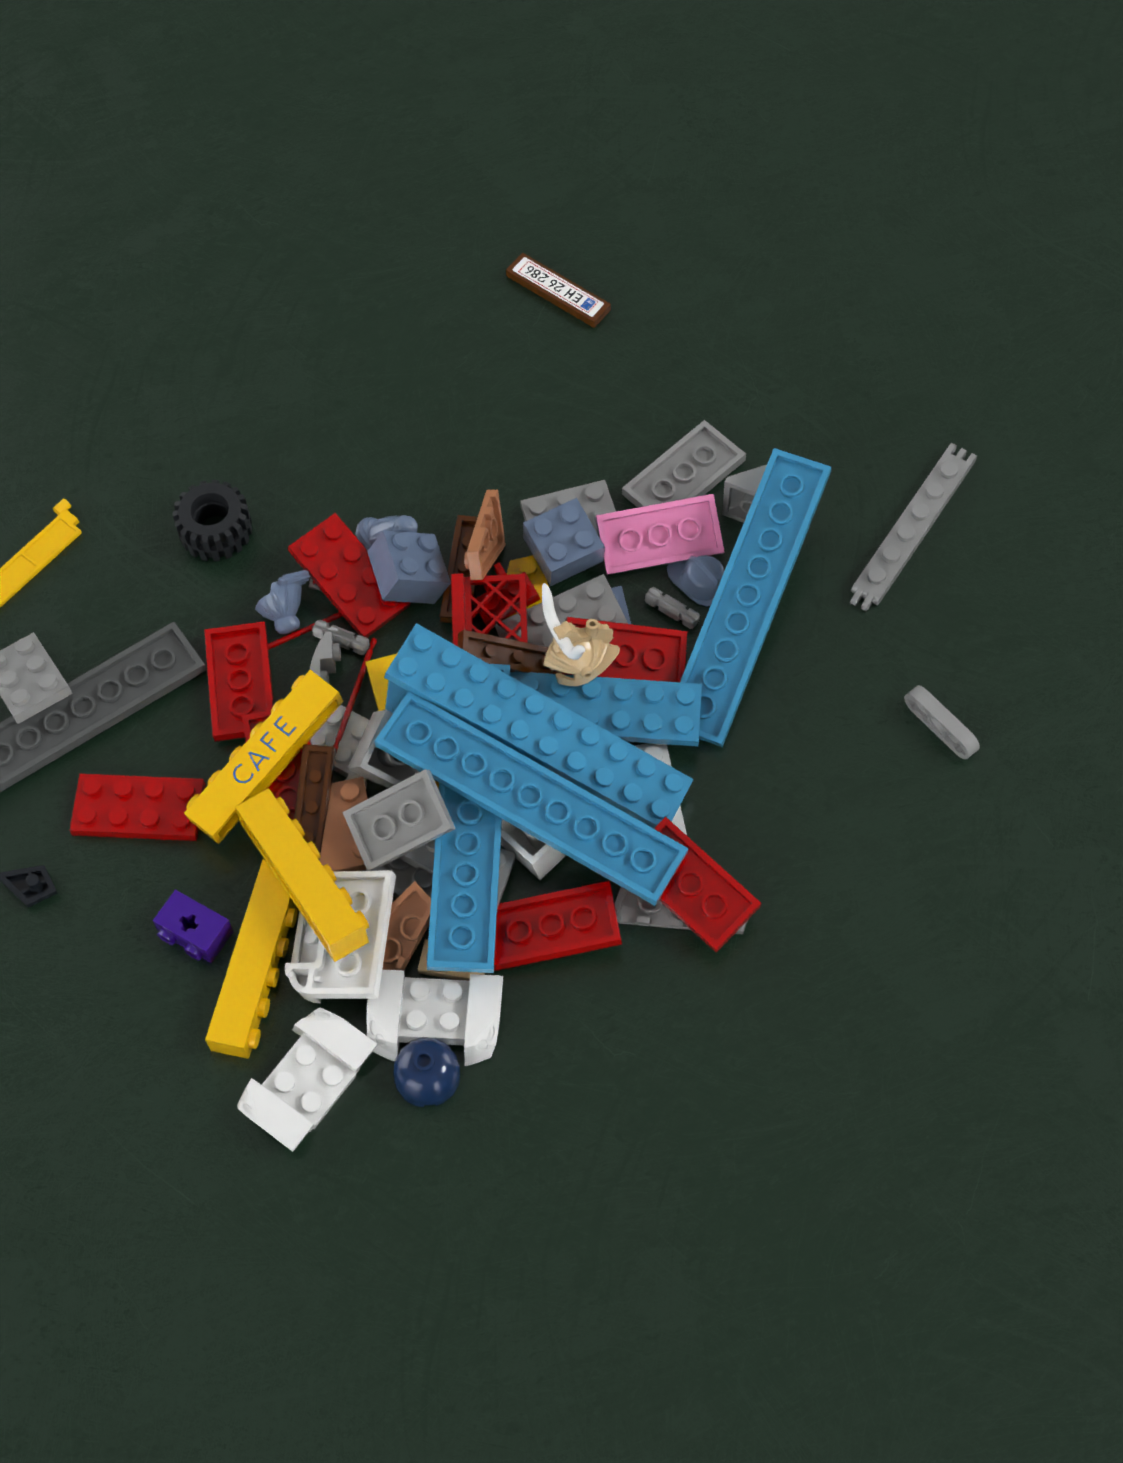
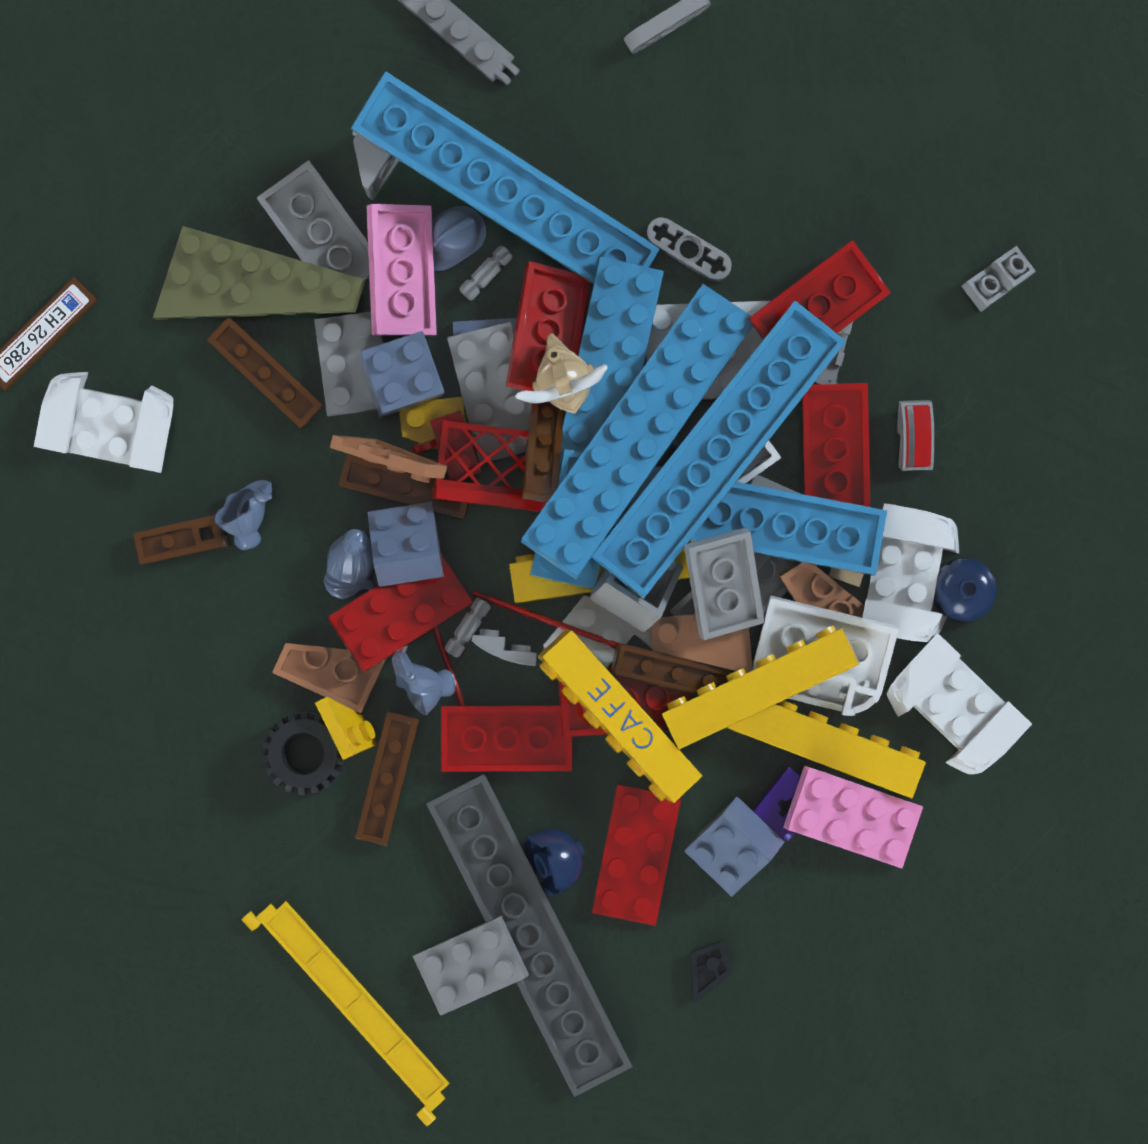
camera: 80 degrees left, 25 degrees up
(127, 731) = (555, 858): none -> dark blue cylinder
(146, 879) = (734, 846): none -> sand blue brick
(183, 989) = (853, 817): none -> bright pink plate
(195, 590) = (387, 778): none -> reddish brown plate
(235, 543) = (347, 727): none -> yellow wing
(287, 524) = (328, 673): none -> nougat wing
(394, 408) = (178, 540): none -> reddish brown plate
(420, 449) = (244, 513): none -> sand blue hair
(488, 338) = (104, 423): none -> white piece
(550, 450) = (265, 373): none -> reddish brown plate
(577, 1001) = (916, 430): none -> slope
(629, 421) = (238, 280): none -> olive wing
(725, 760) = (714, 254): none -> light grey beam
(753, 1064) = (998, 278): none -> light grey slope

